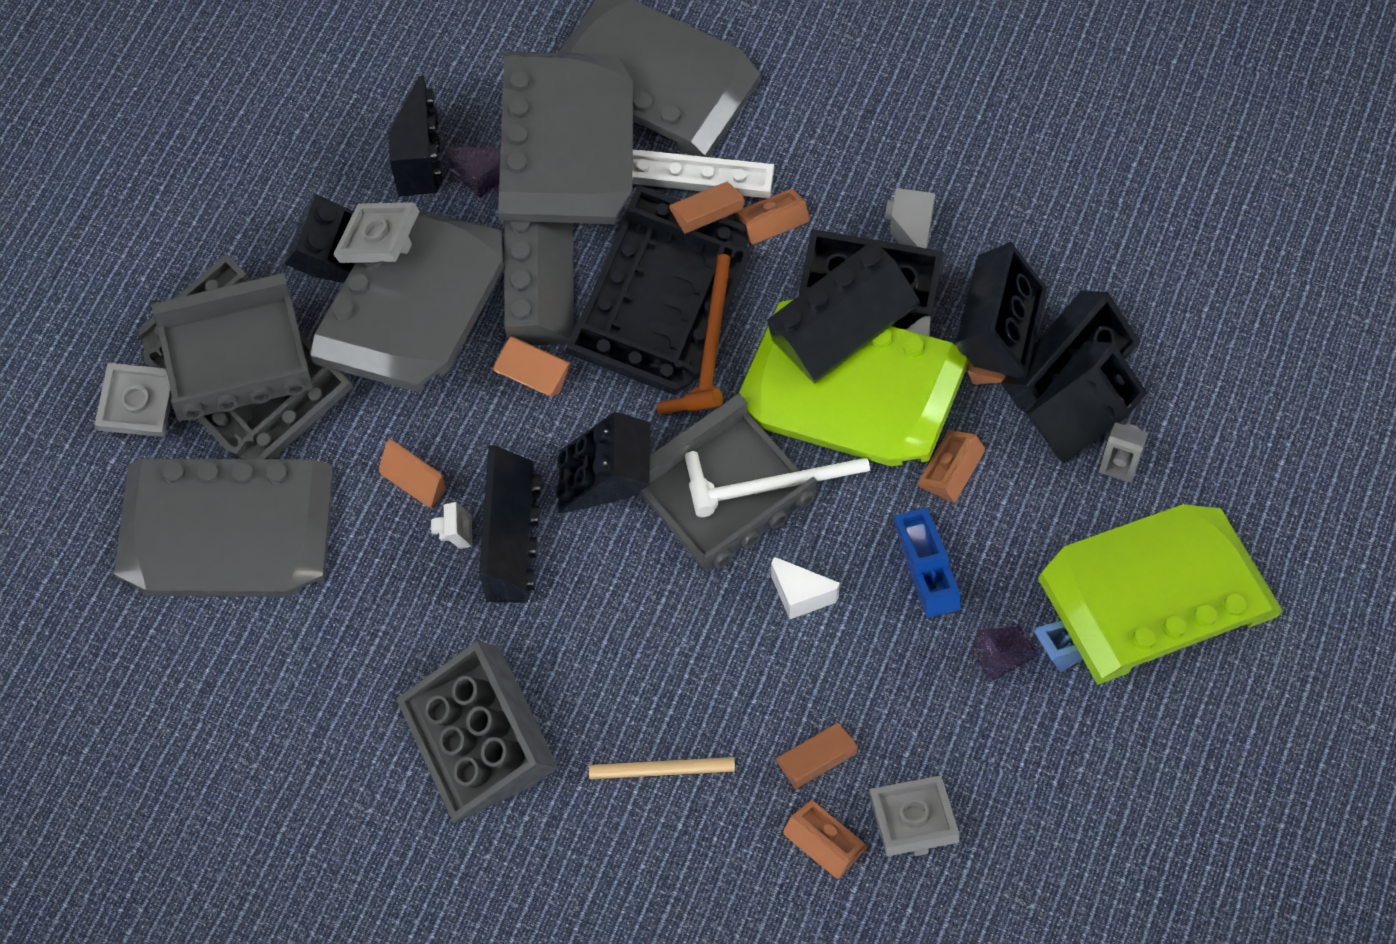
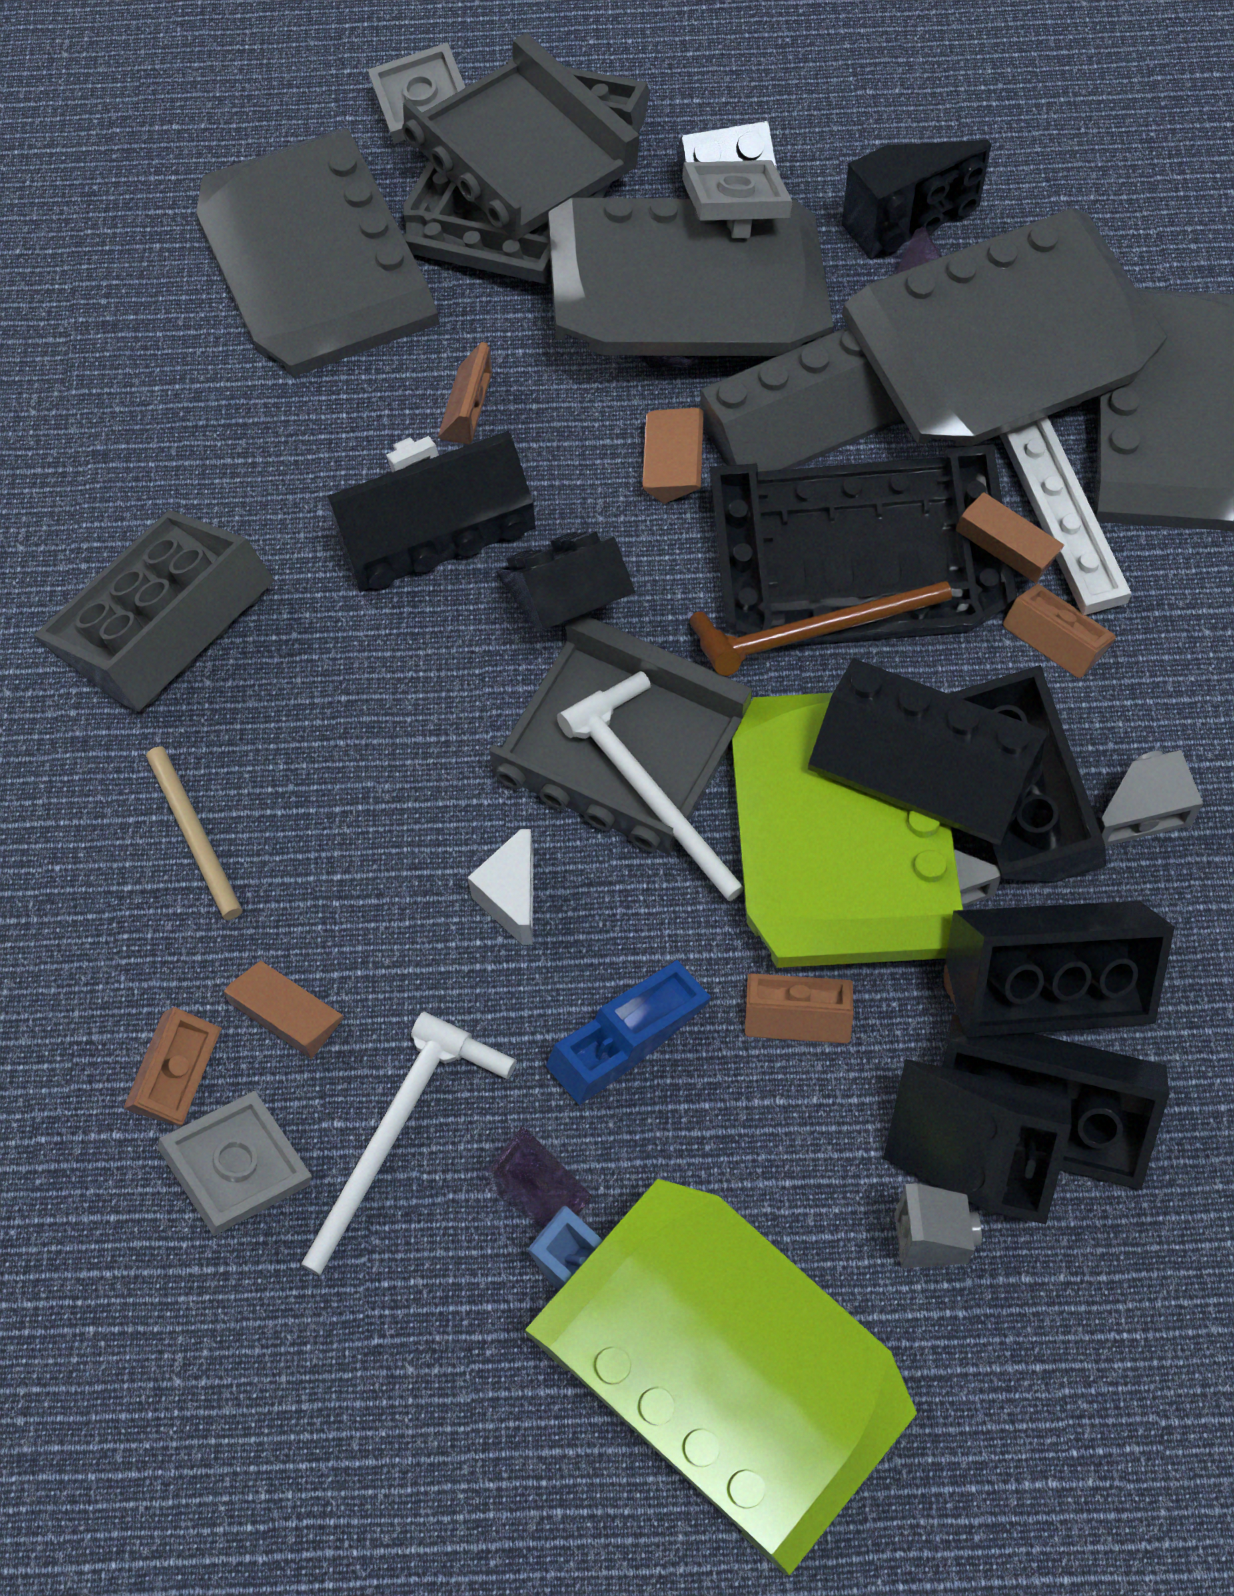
camera: 65 degrees right, 0 degrees up
(884, 672) = (436, 1043): none -> white bar

